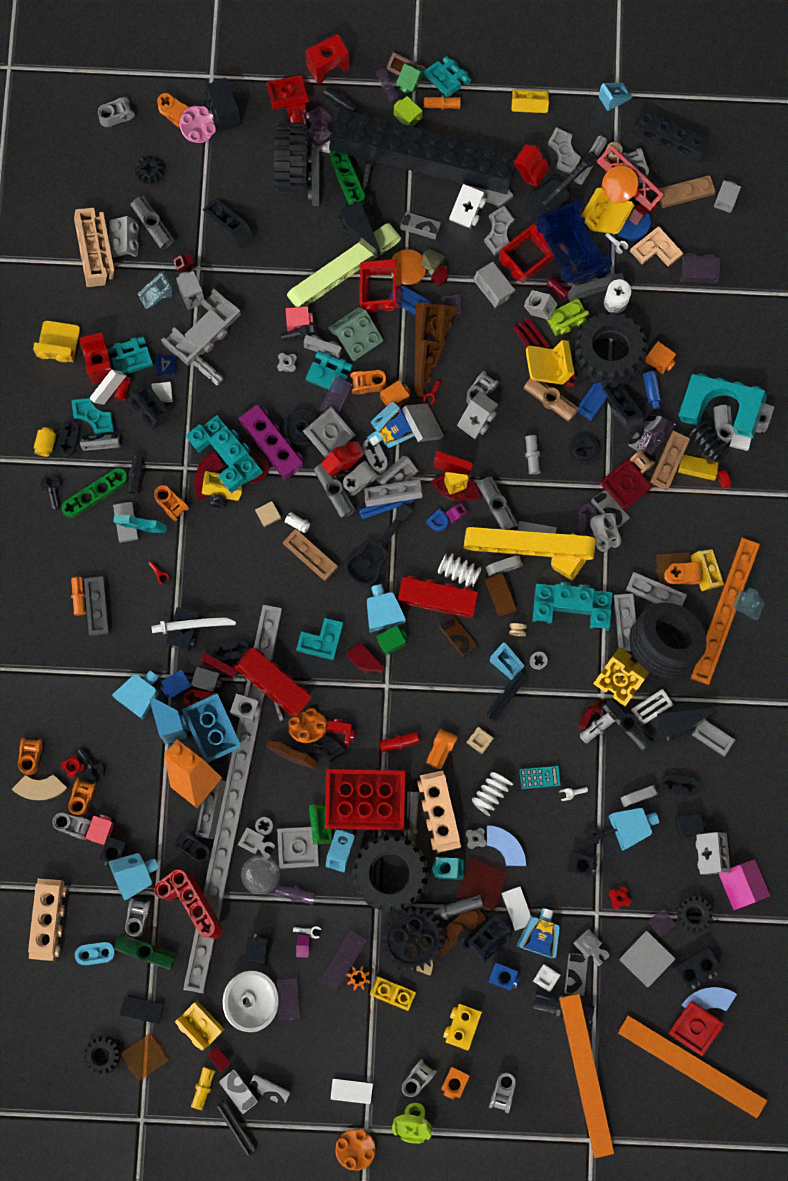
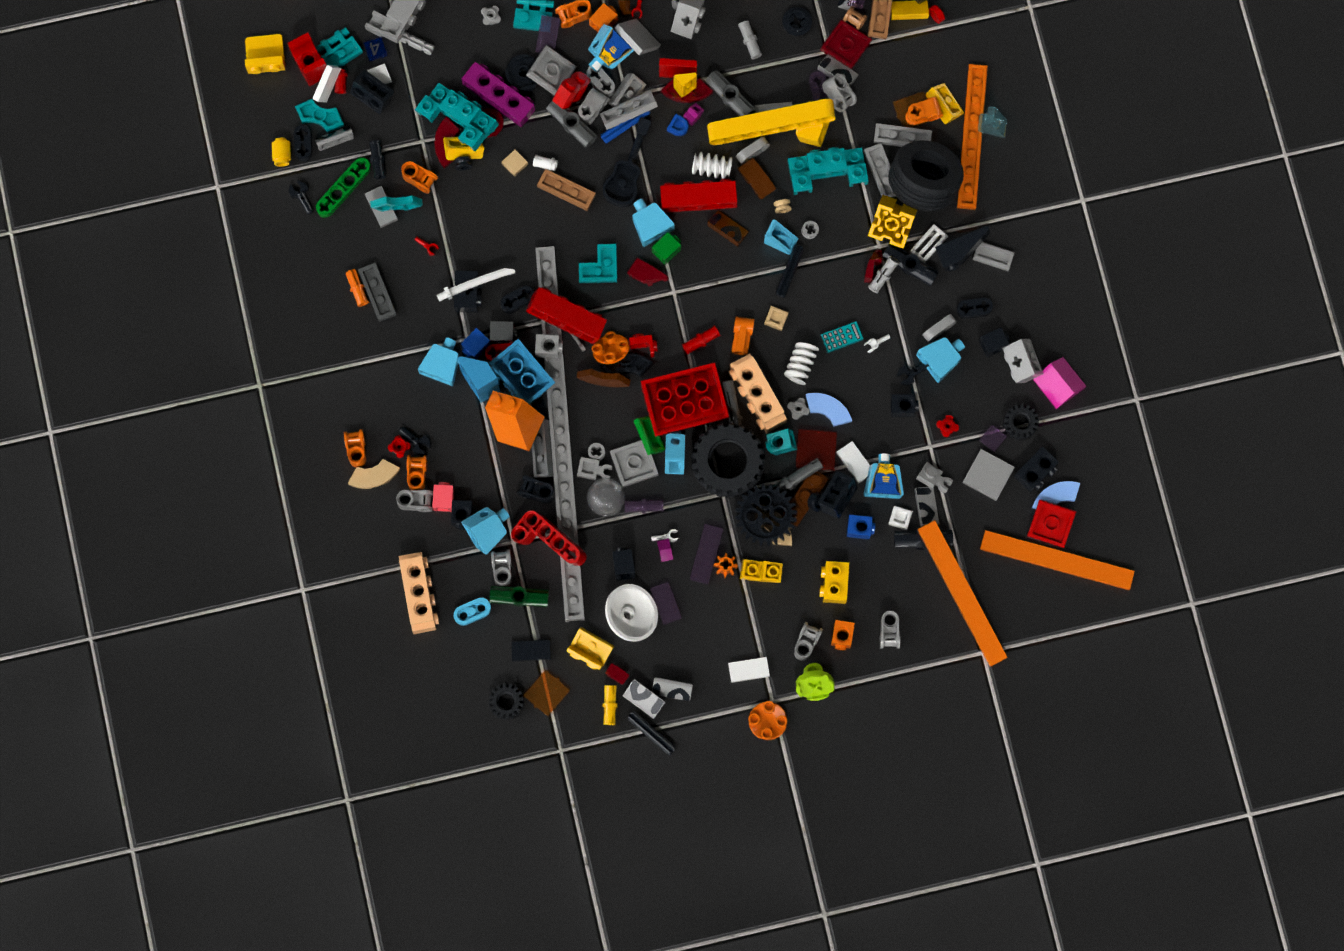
camera: 15 degrees left, 0 degrees up
(219, 666) = (510, 315): dark red tile -> none

